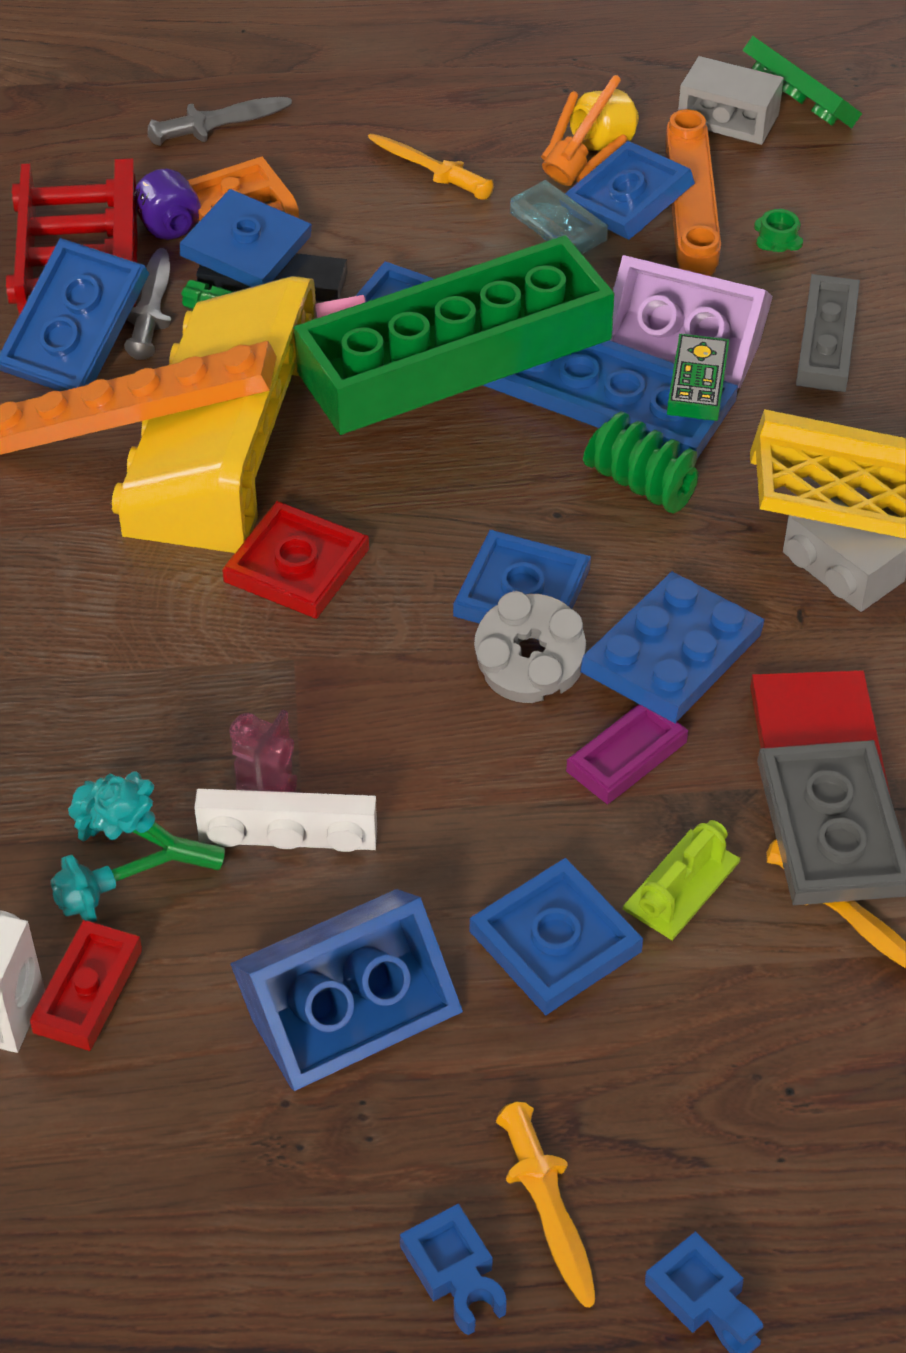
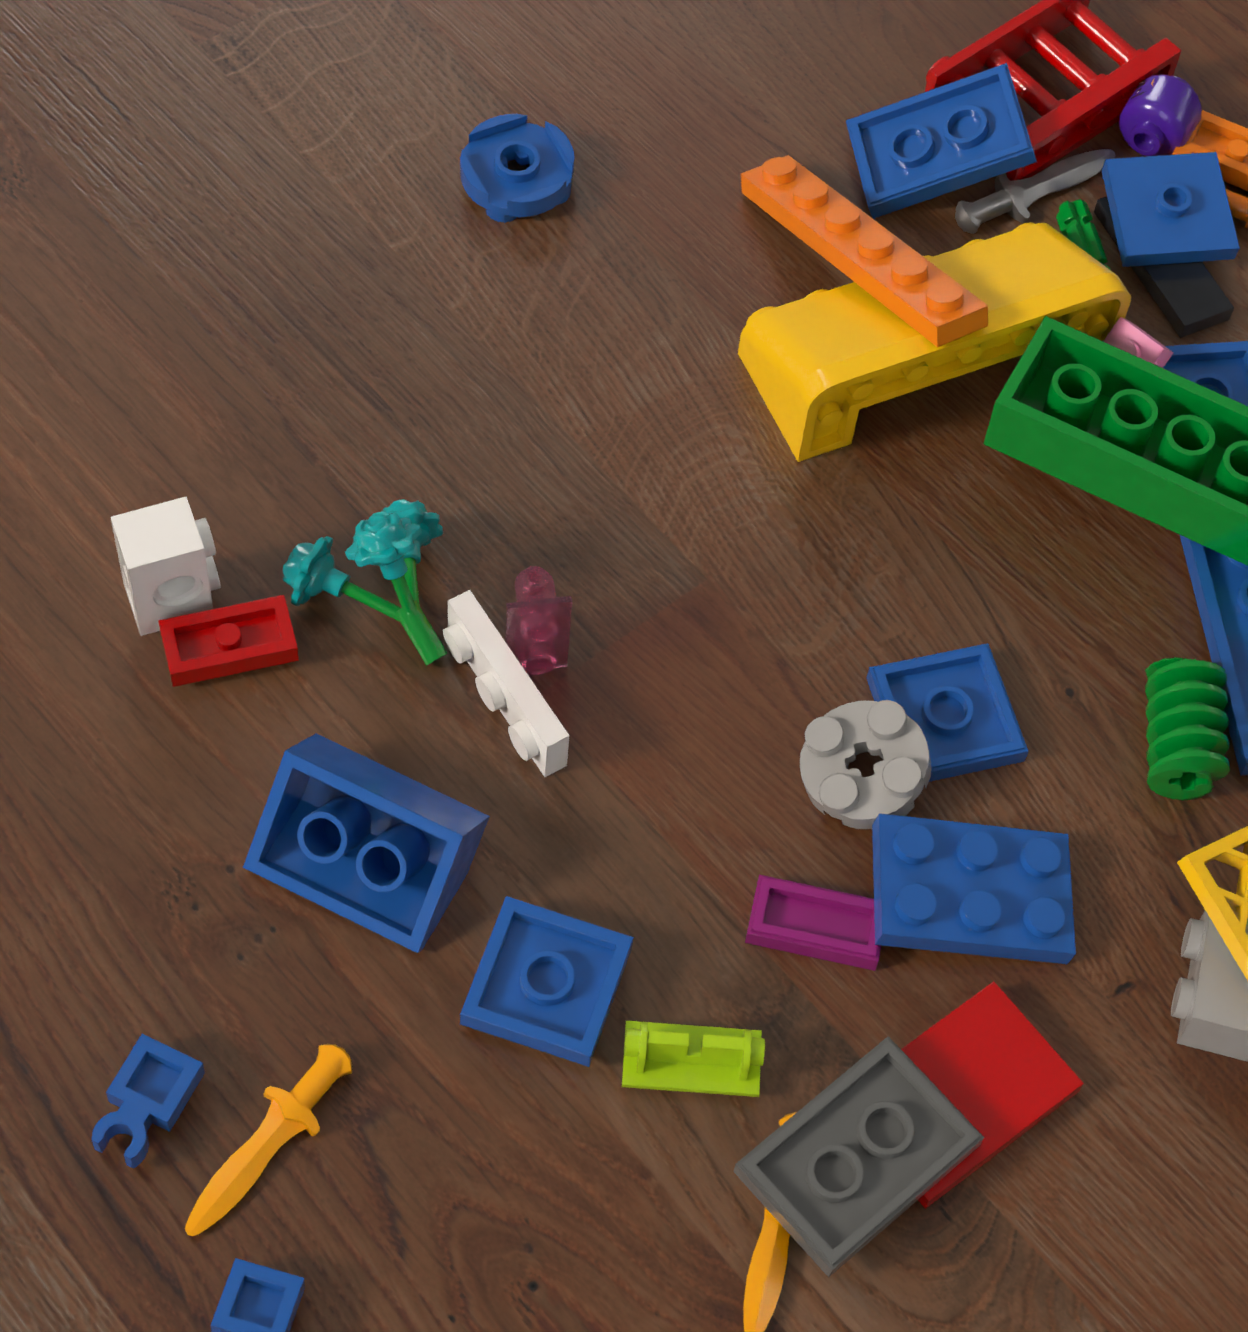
camera: 50 degrees right, 10 degrees up
(296, 559) = (821, 506): red tile -> none

